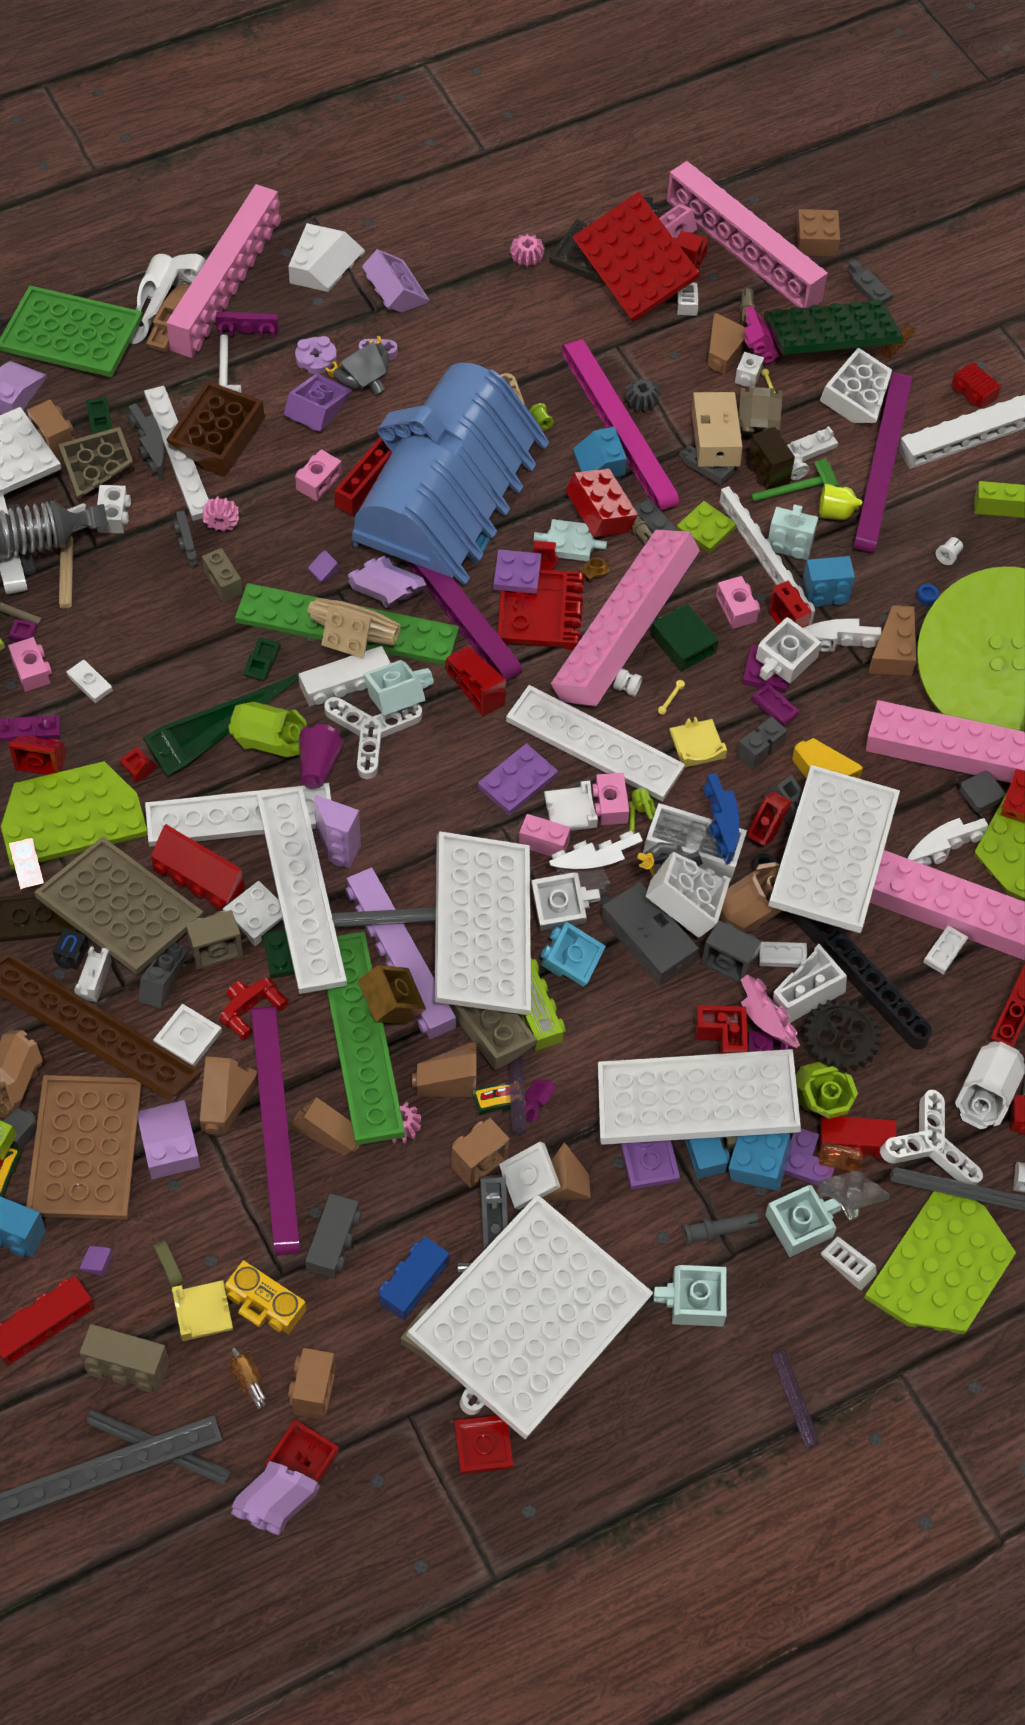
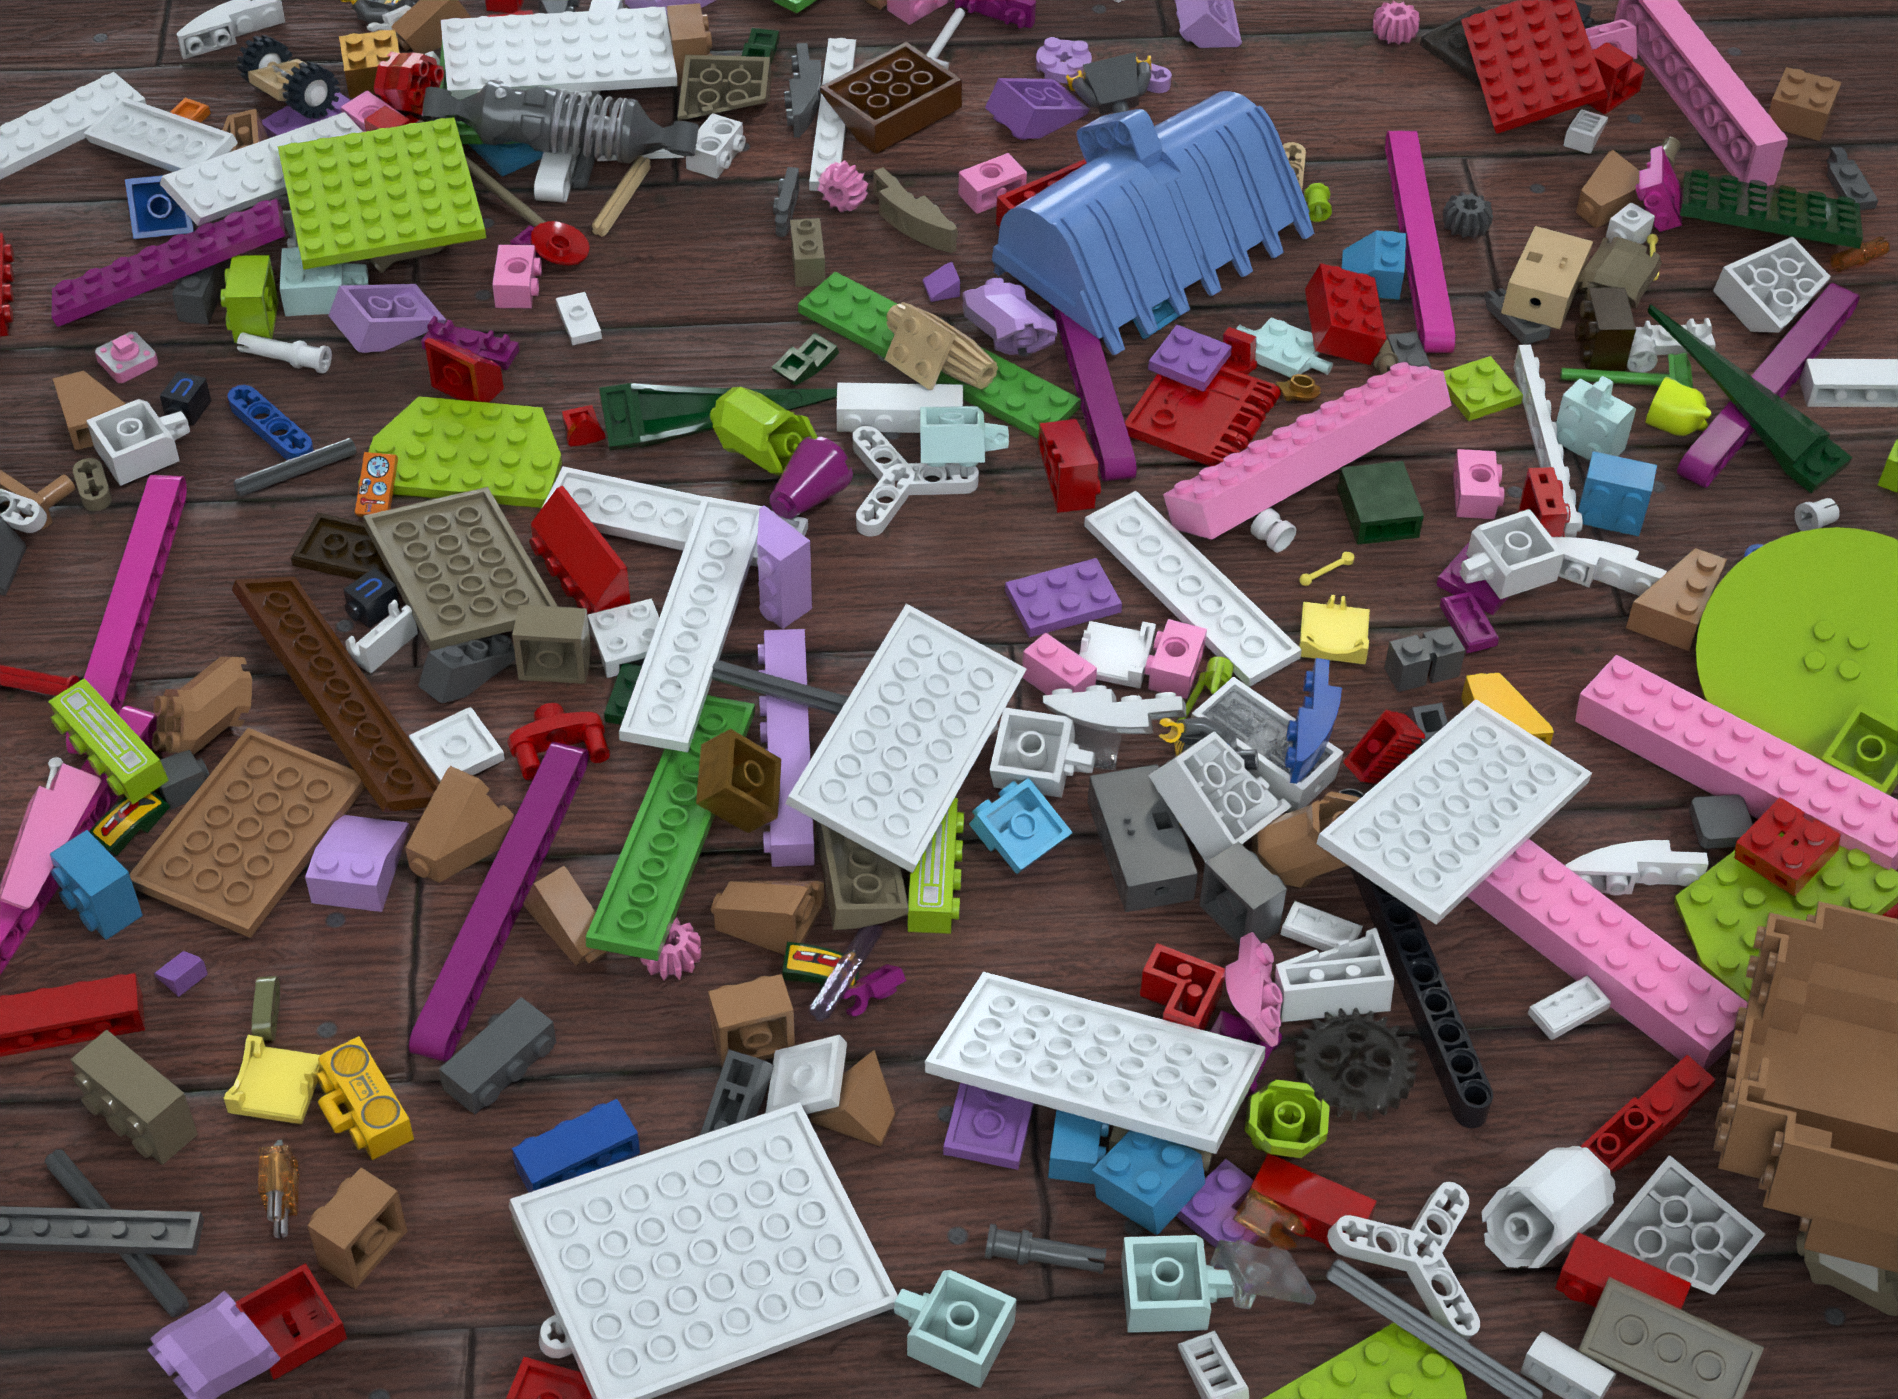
camera: 25 degrees right, 10 degrees down
(46, 627) = (560, 243): none -> red dish
(280, 521) = (912, 216): none -> dark tan slope
(910, 496) = (1791, 436): none -> dark green plate

